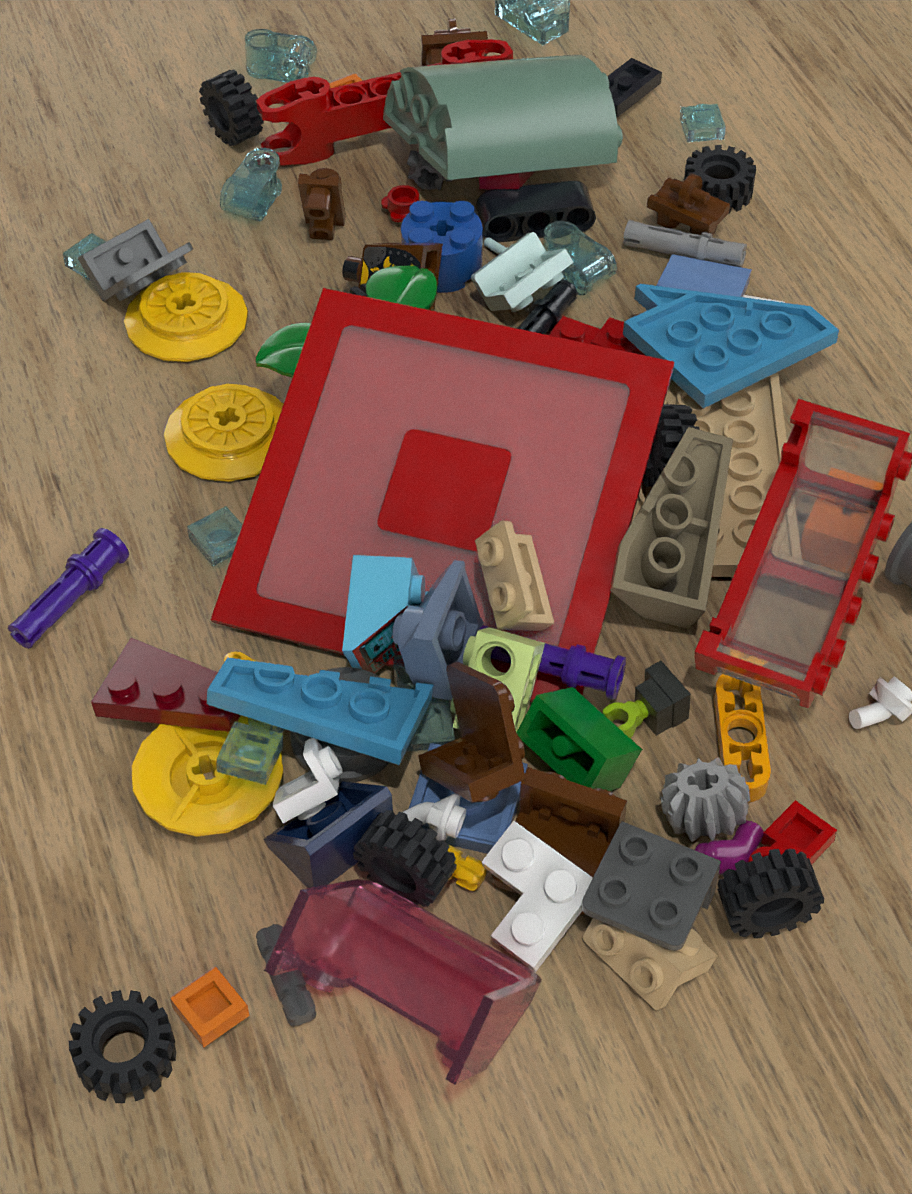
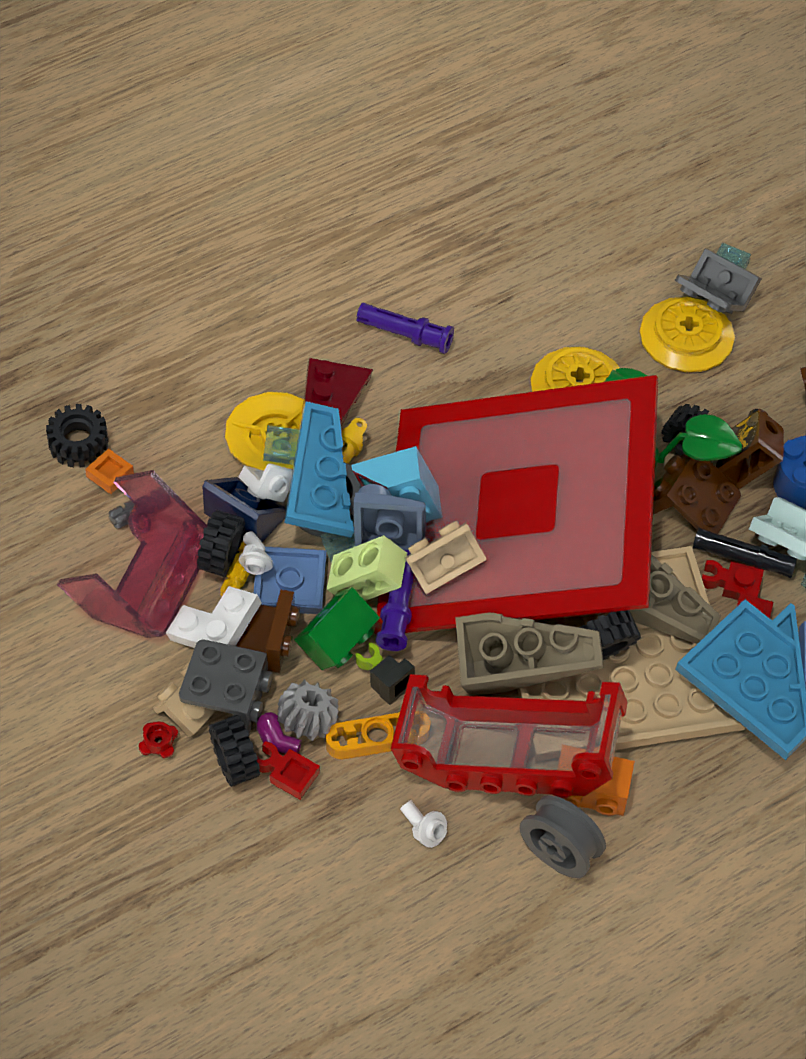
camera: 75 degrees right, 5 degrees up
(216, 535) = (471, 390): clear light blue plate -> none
(489, 748) = (305, 560): reddish brown bracket -> none
(721, 991) = (156, 730): none -> red plate

